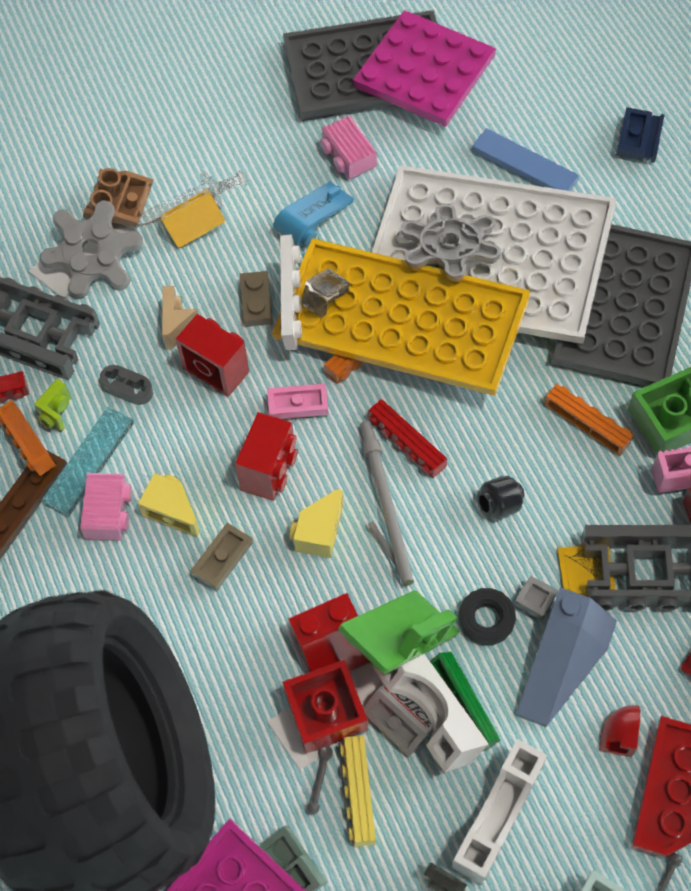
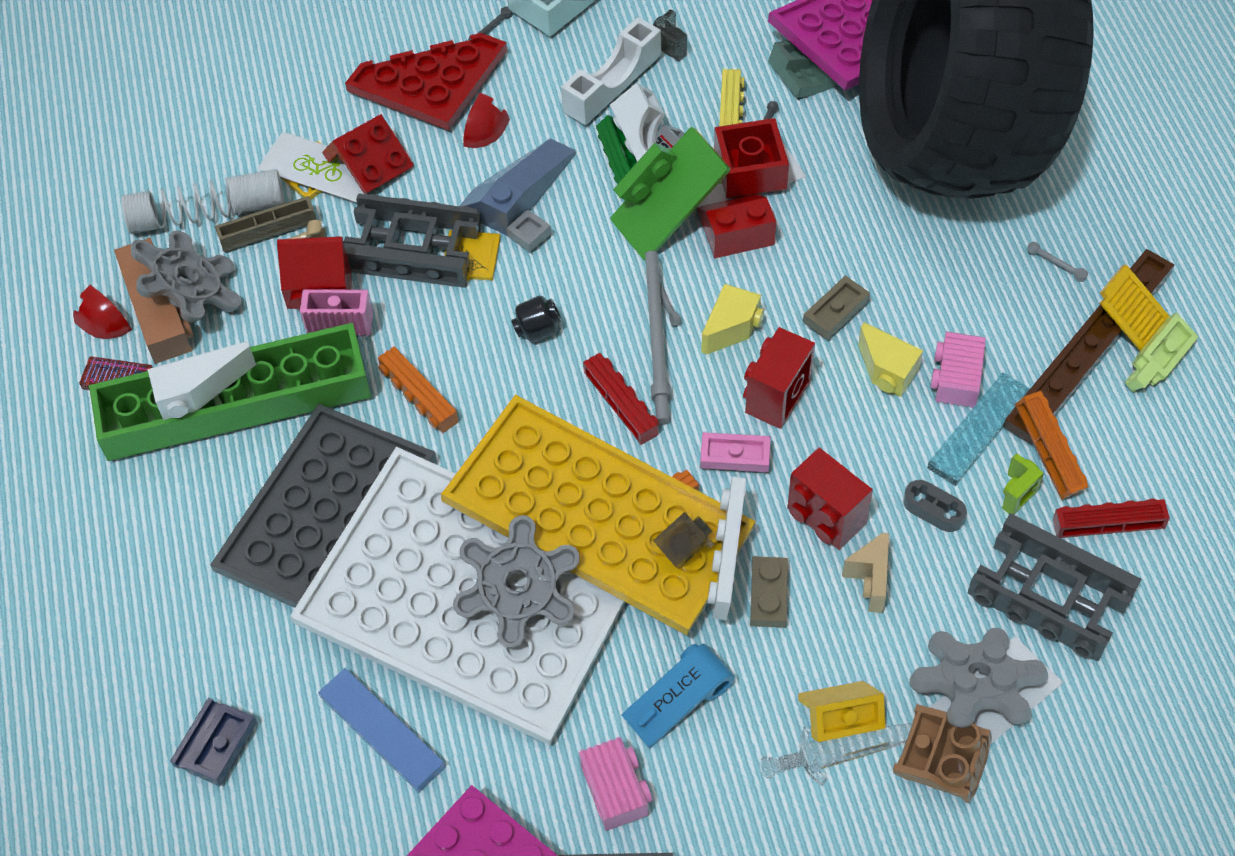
camera: 170 degrees left, 5 degrees down
(487, 635) = (580, 209): black tyre -> none

